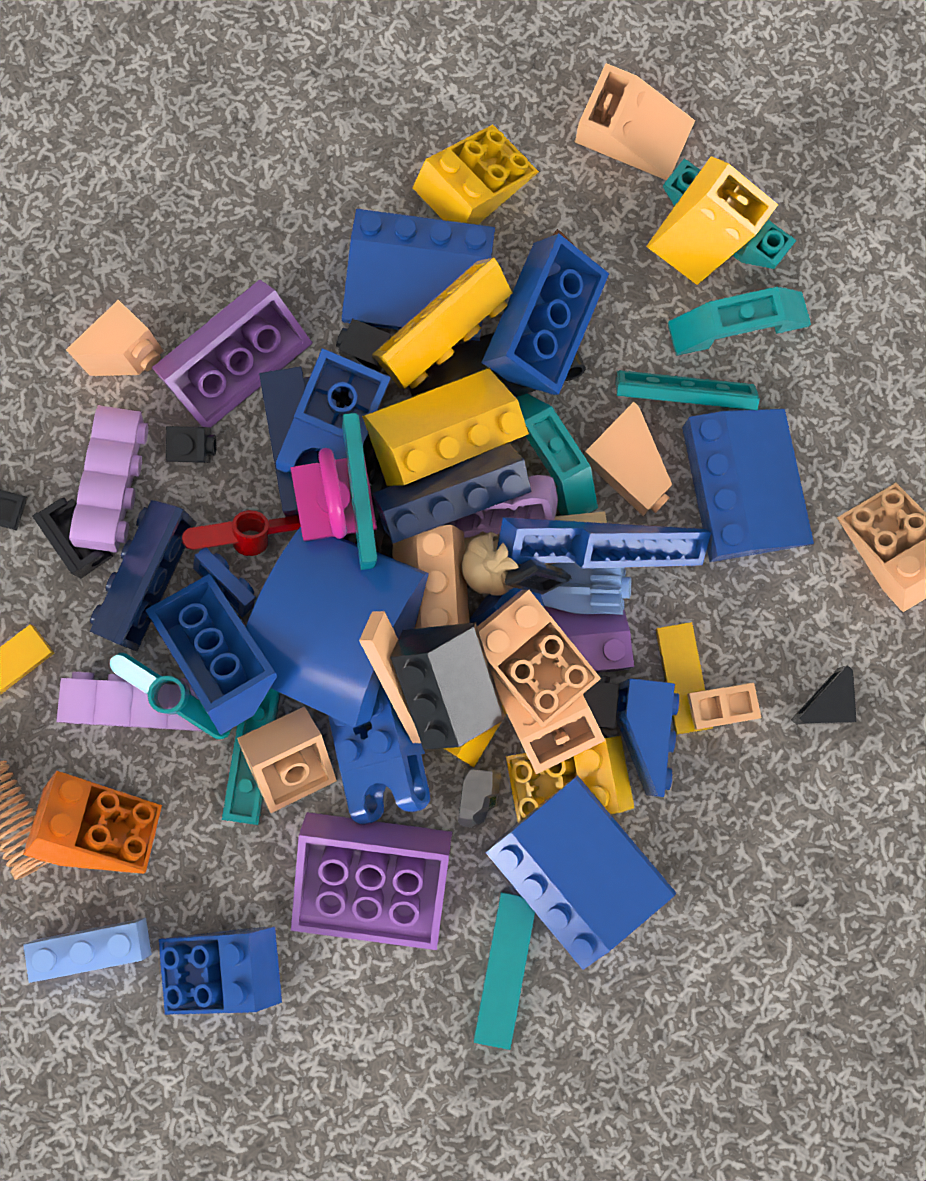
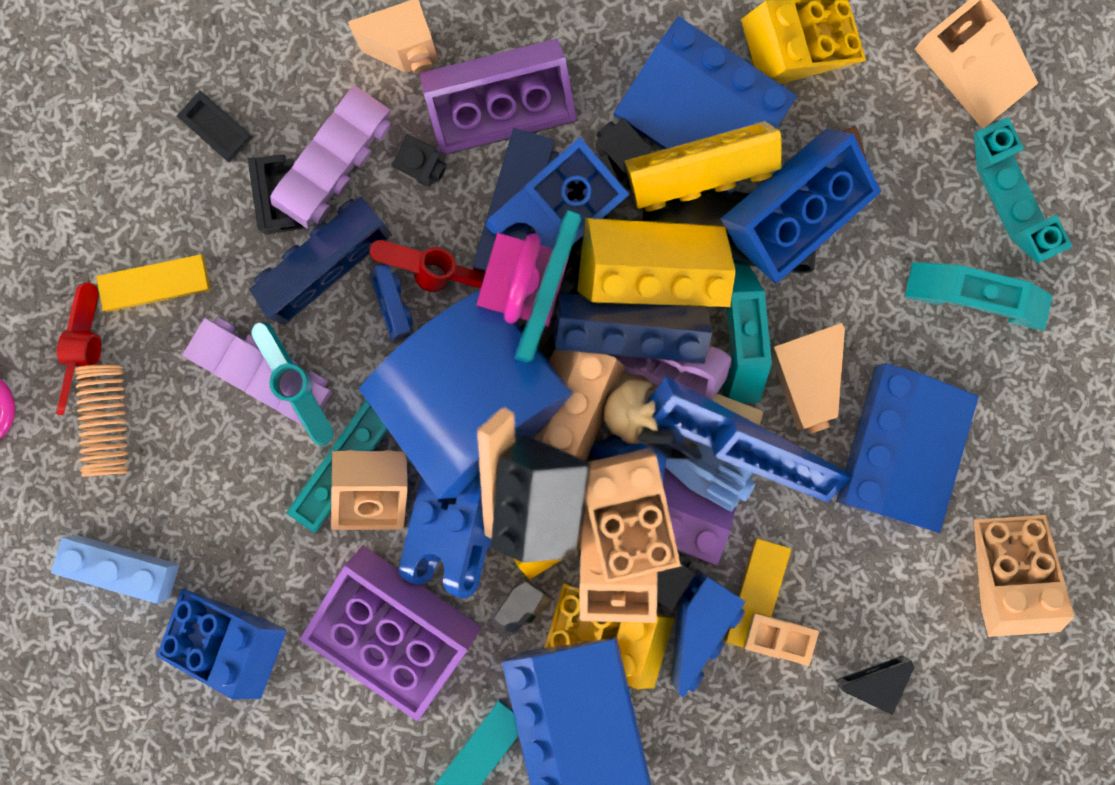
camera: 30 degrees right, 5 degrees up
(92, 826) = (169, 464): orange slope -> none
(214, 652) = (348, 364): blue slope -> none
(687, 390) = (897, 335): teal tile -> none
(711, 221) = (1002, 190): yellow slope -> none

